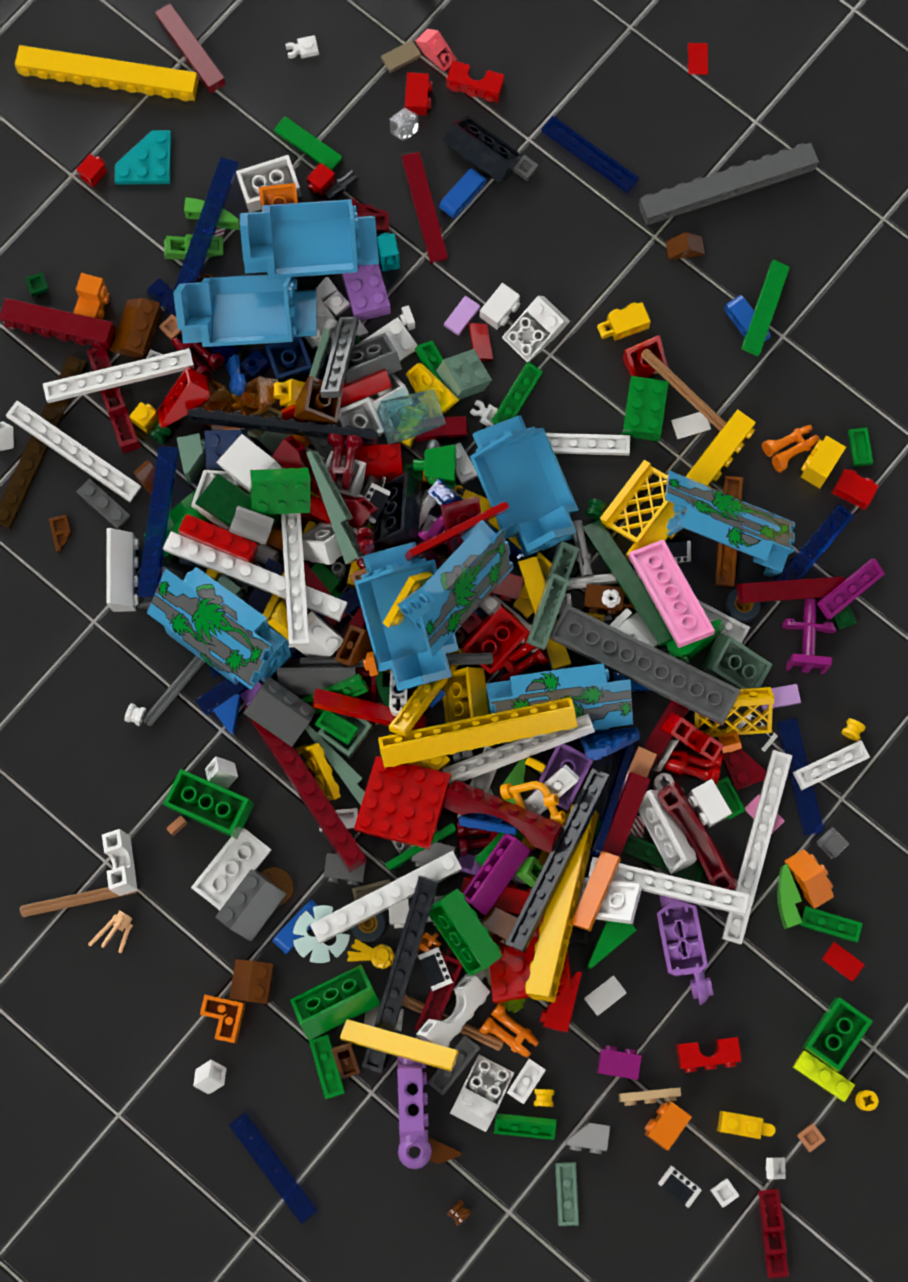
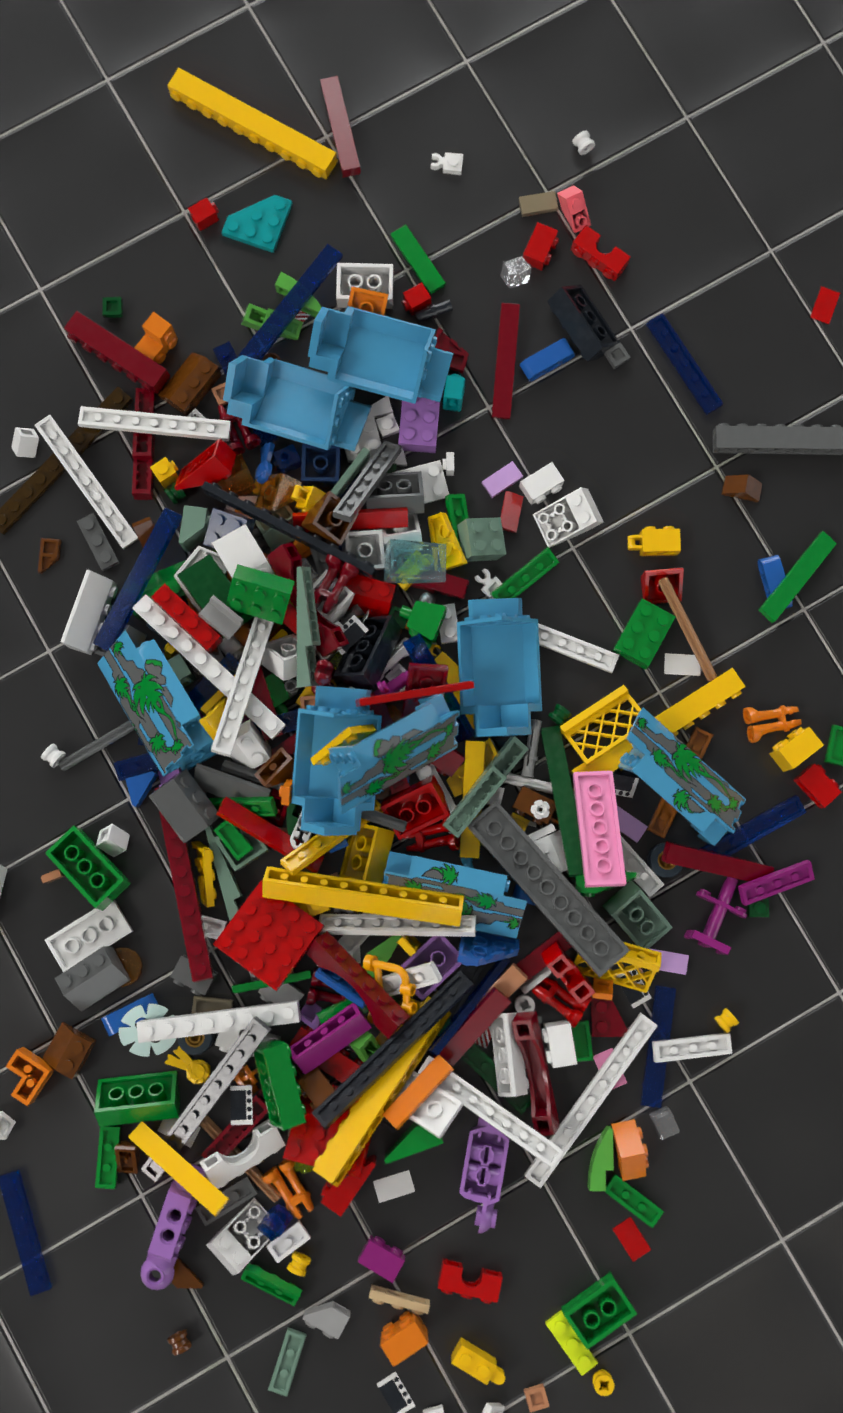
camera: 20 degrees right, 5 degrees up
(507, 1066) = (275, 1222): none -> clear blue brick
(701, 587) = (630, 825): none -> lavender tile

